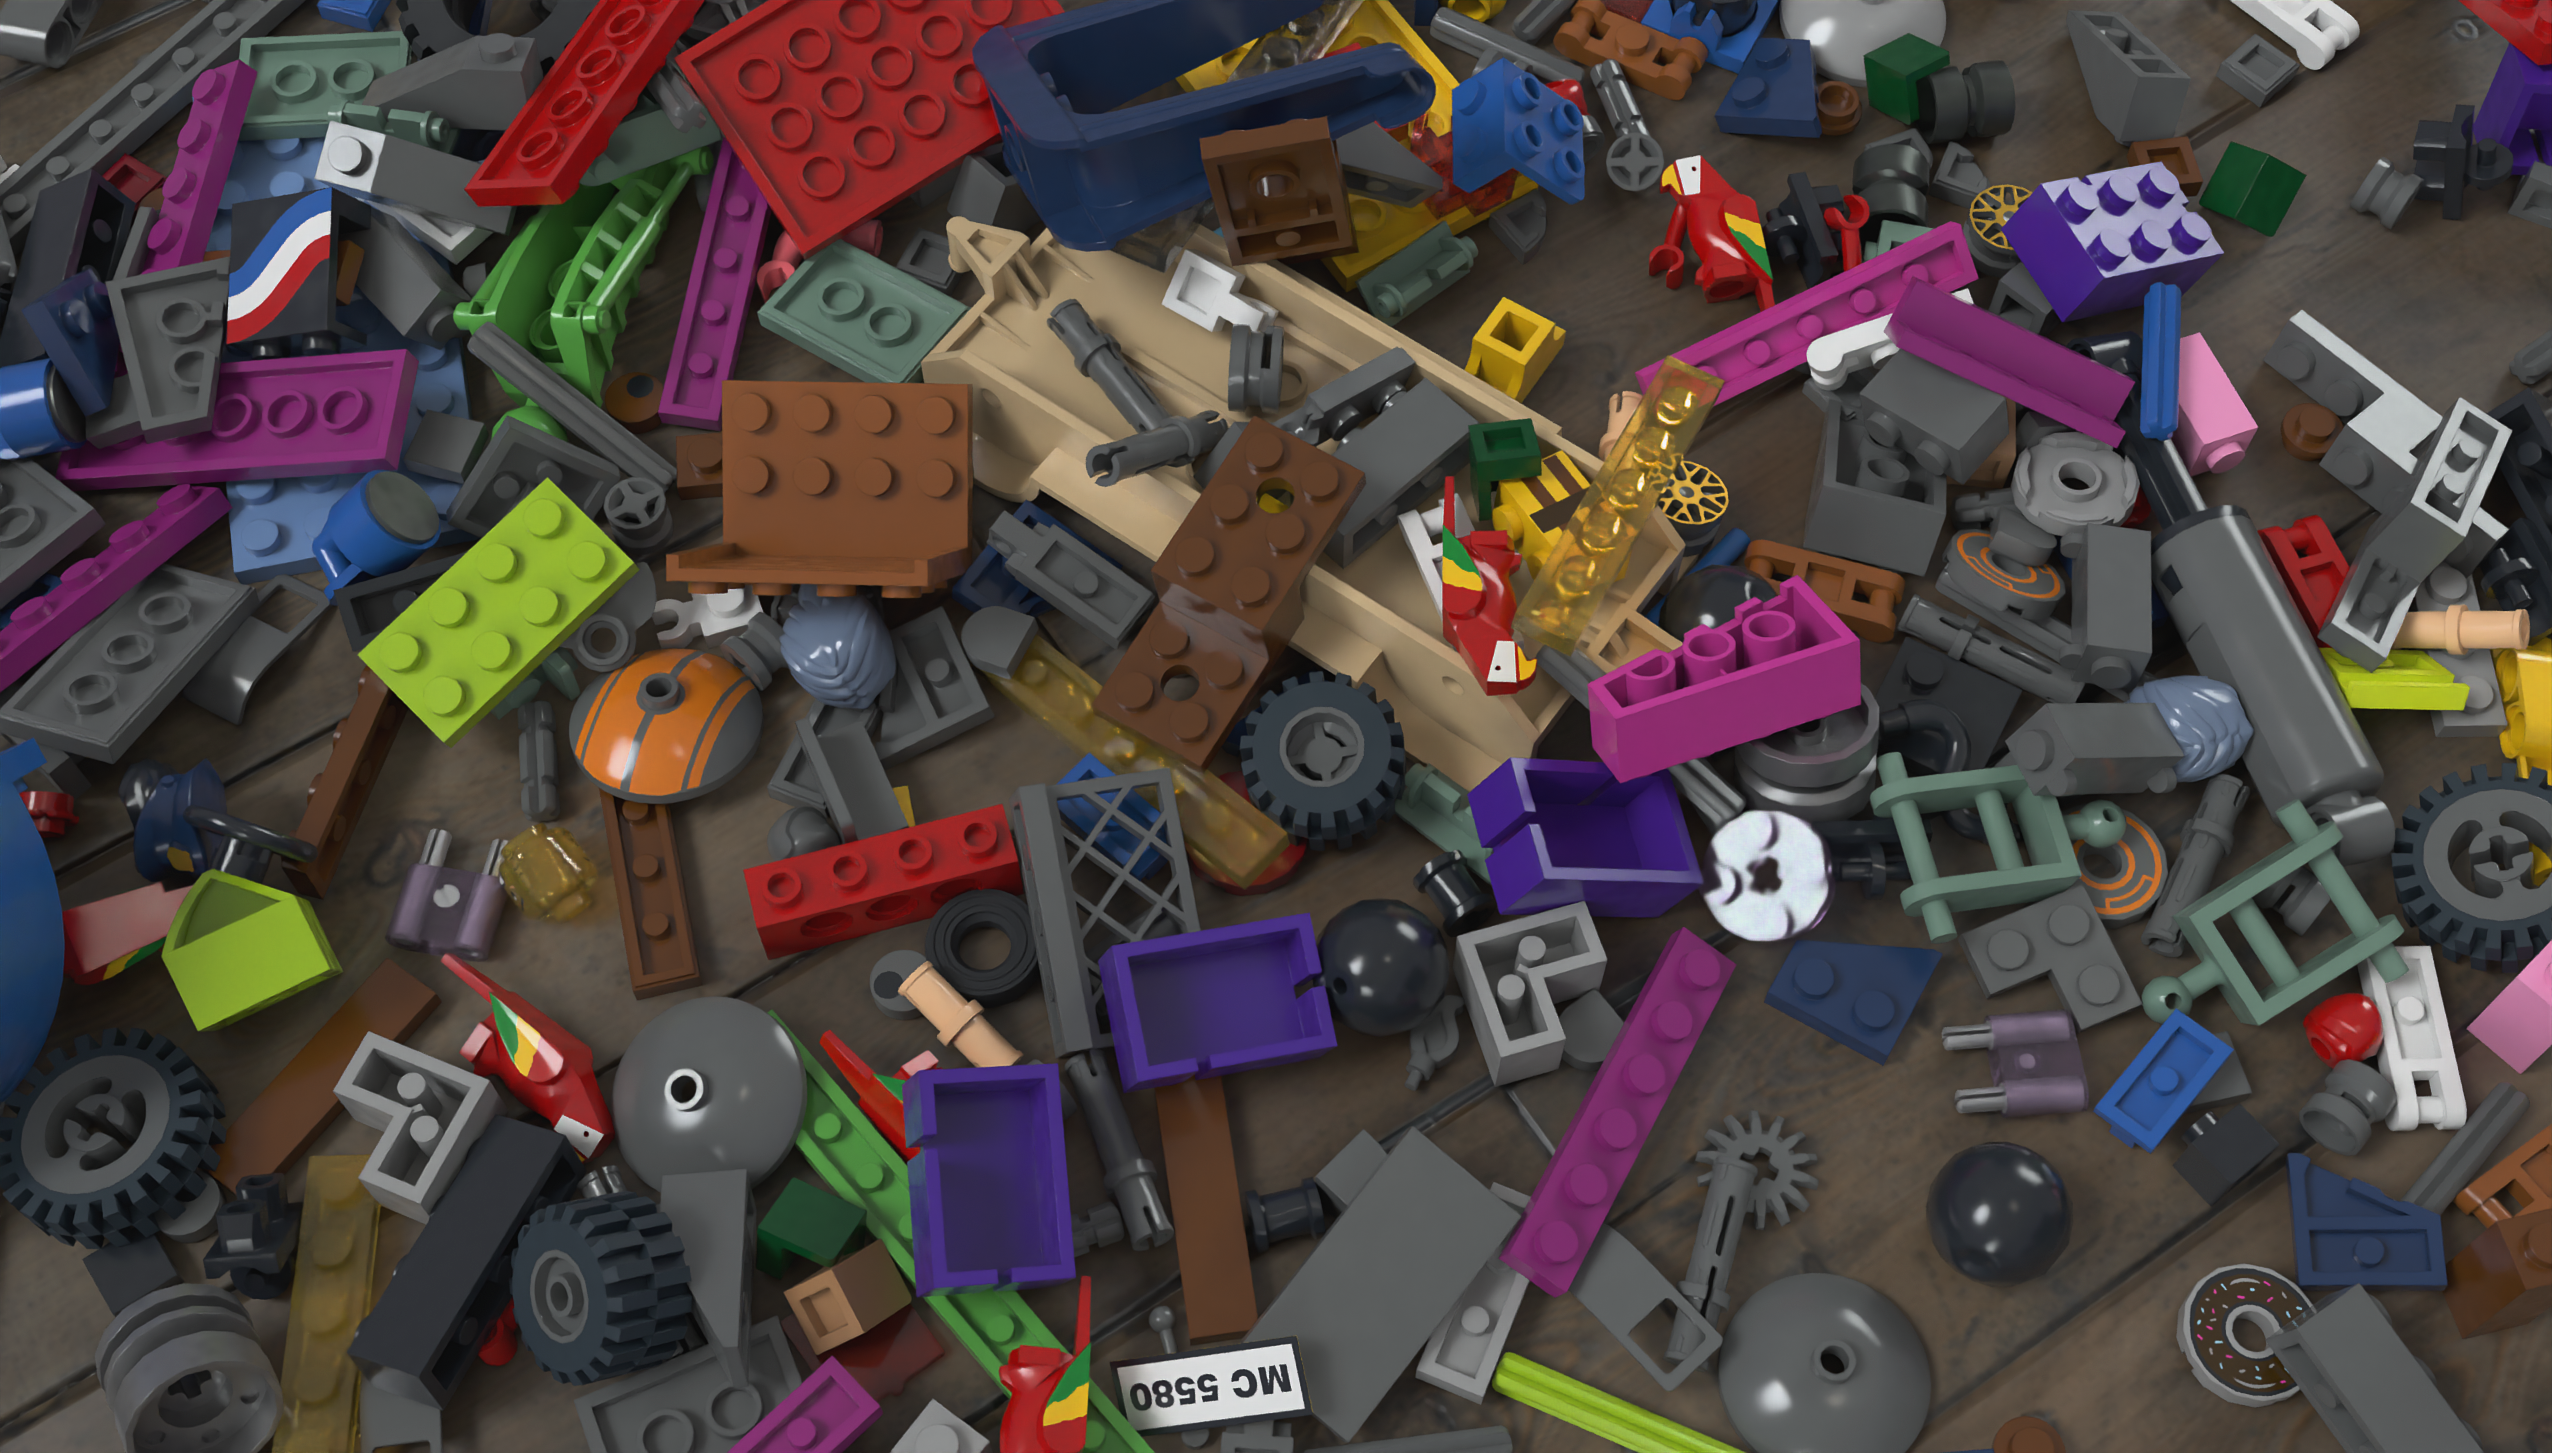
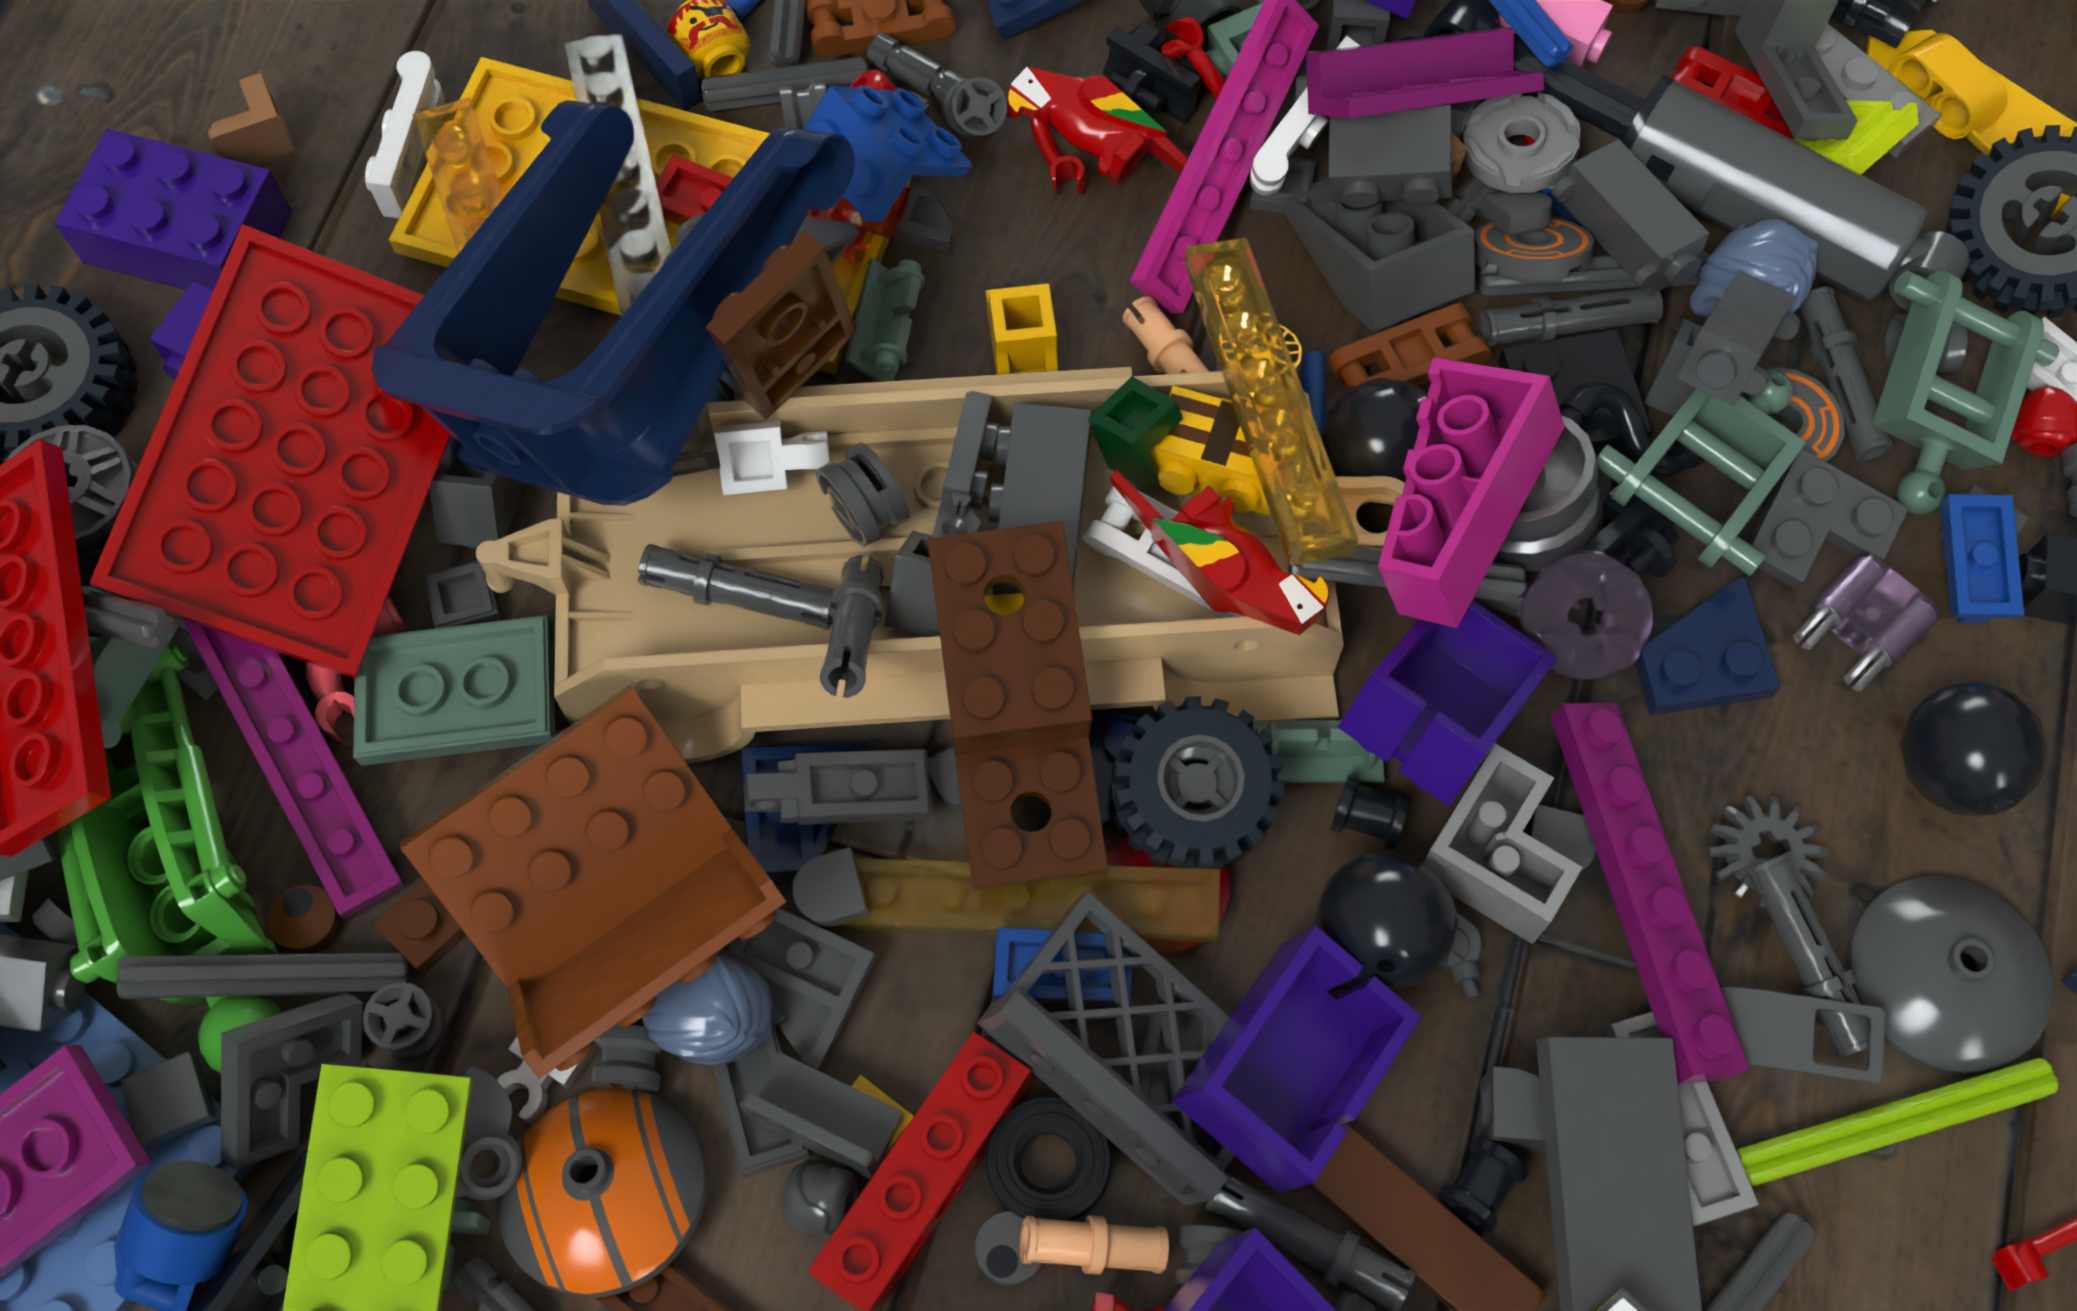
camera: 40 degrees left, 5 degrees up
(2464, 630) = (1878, 58): light nougat pin -> none

